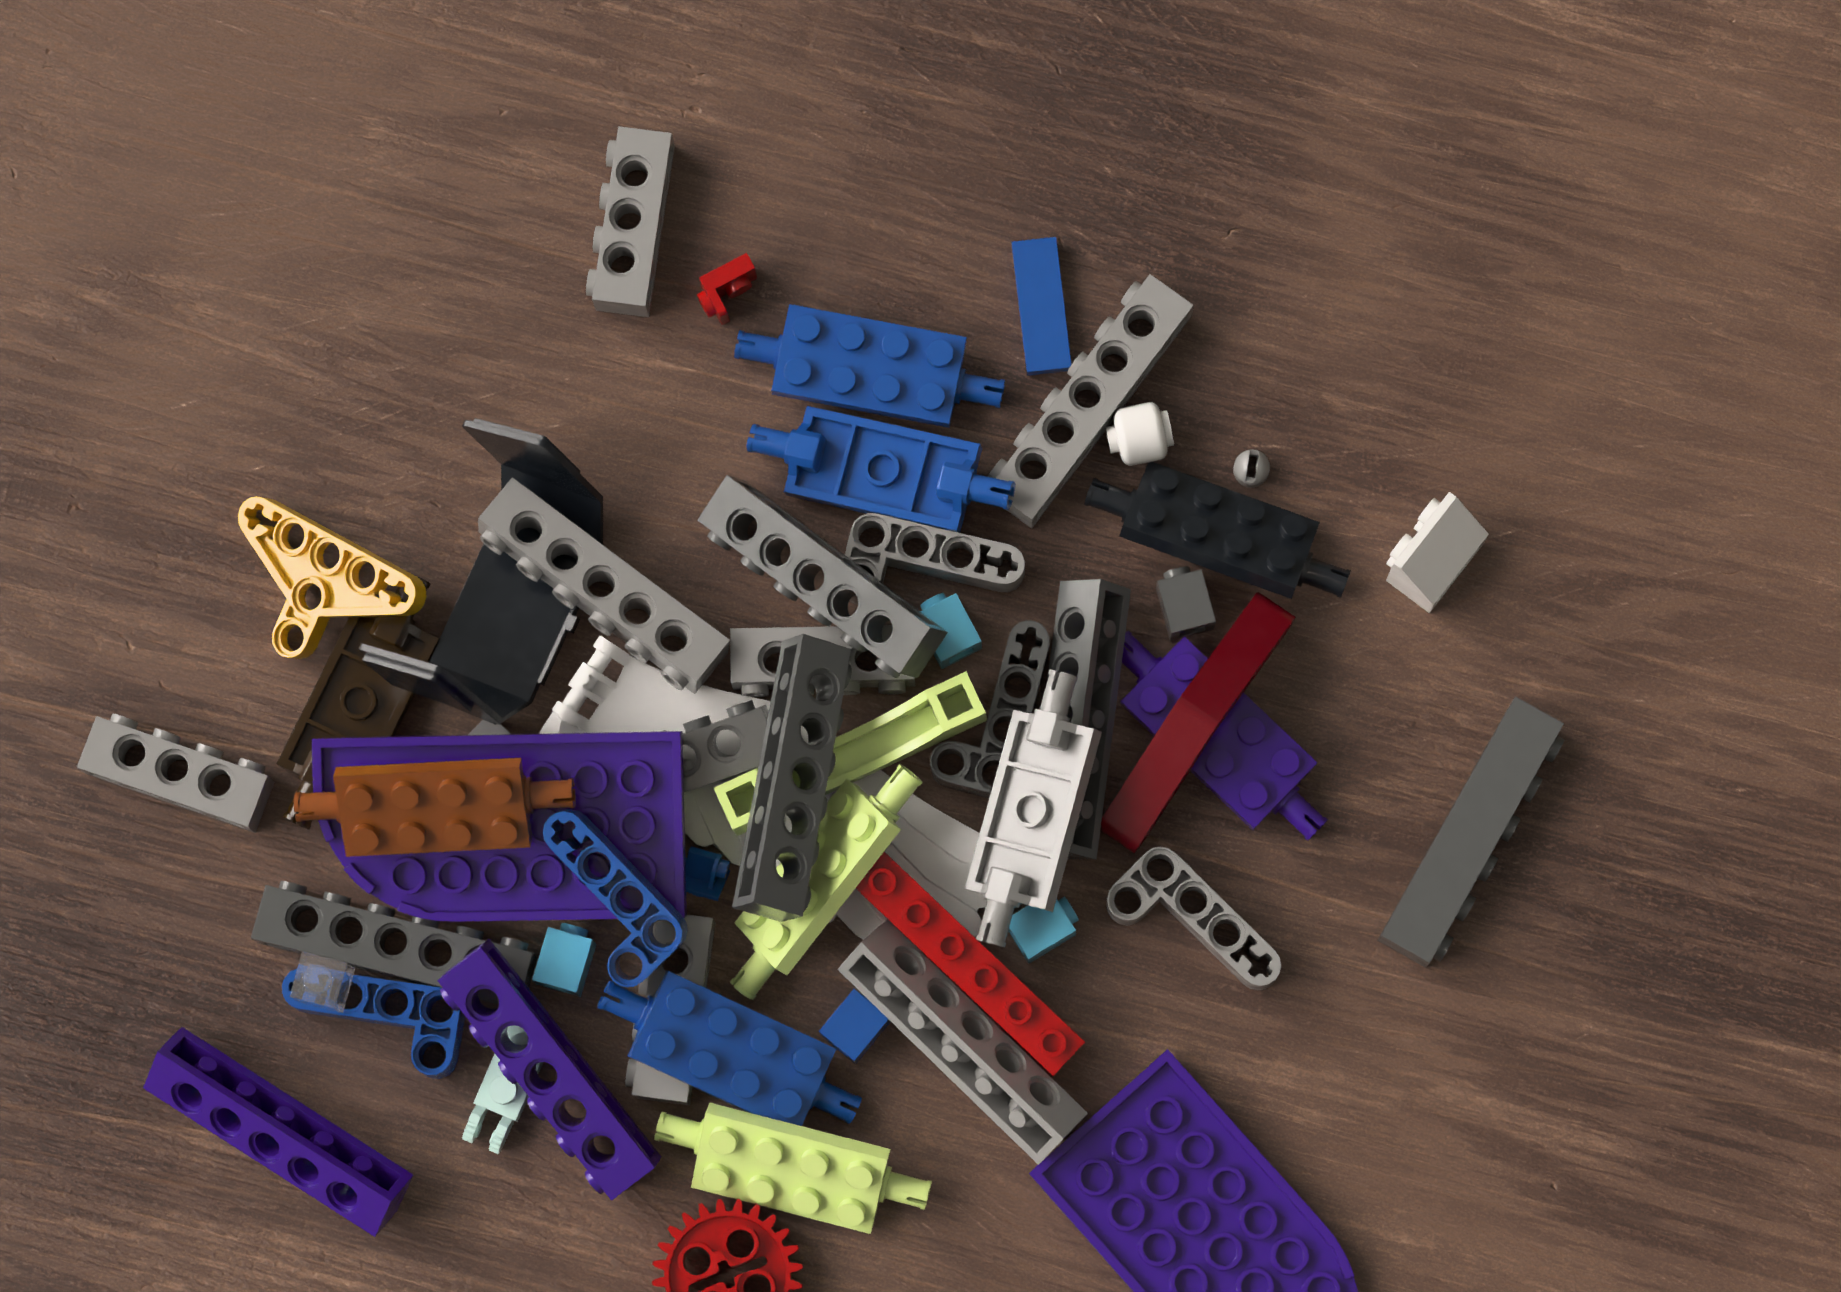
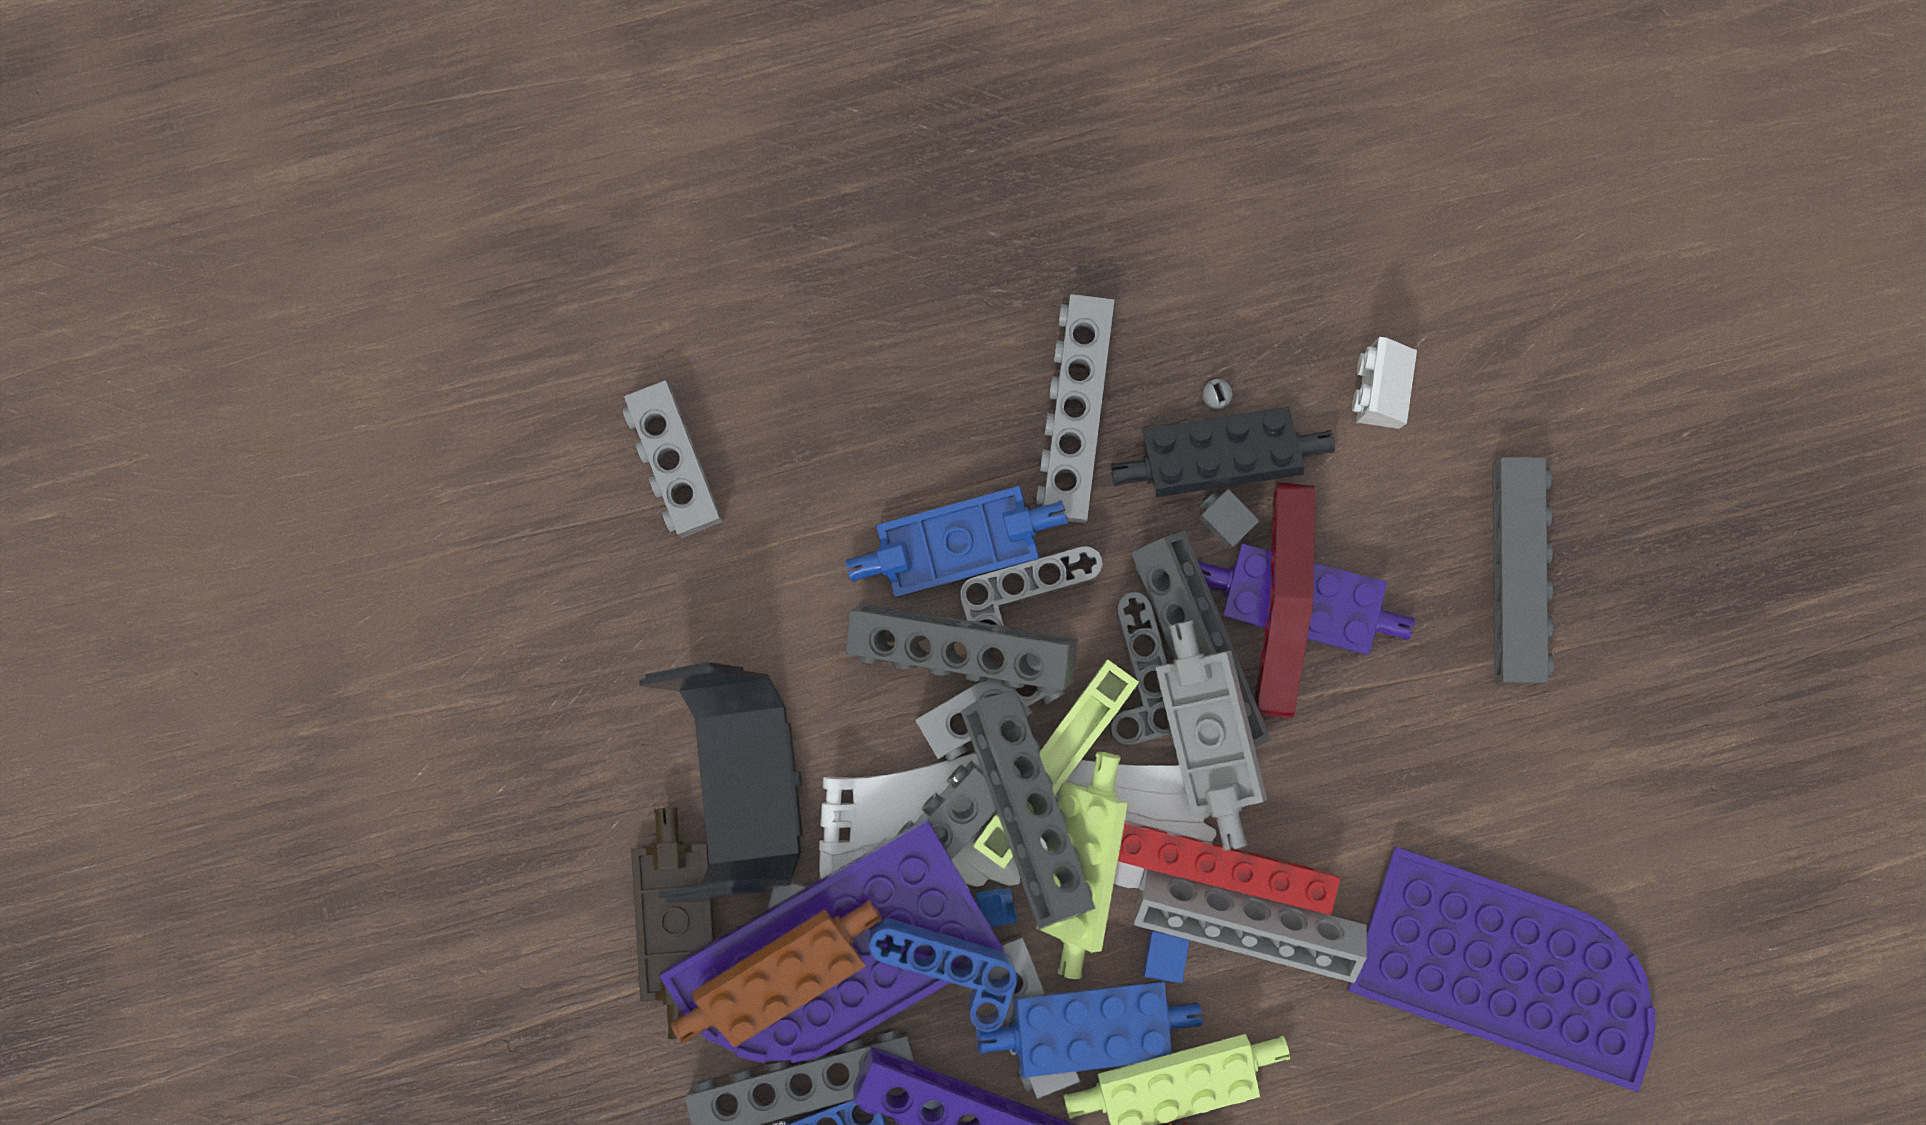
camera: 35 degrees left, 5 degrees up
(239, 806) = (514, 1068): light grey brick -> none
(302, 567) = (613, 847): yellow beam -> none
(520, 509) = (712, 717): light grey brick -> none
(565, 959) = (931, 1025): medium azure brick -> none
(730, 280) = (768, 463): red bracket -> none
(869, 366) = (904, 471): blue plate -> none
(961, 636) = (1071, 624): medium azure brick -> none
(1041, 306) = (1002, 359): blue tile -> none
(1041, 930) = (1261, 816): medium azure brick -> none
(1140, 433) = (1127, 413): white head -> none
(1199, 924) = (1370, 741): light grey beam -> none

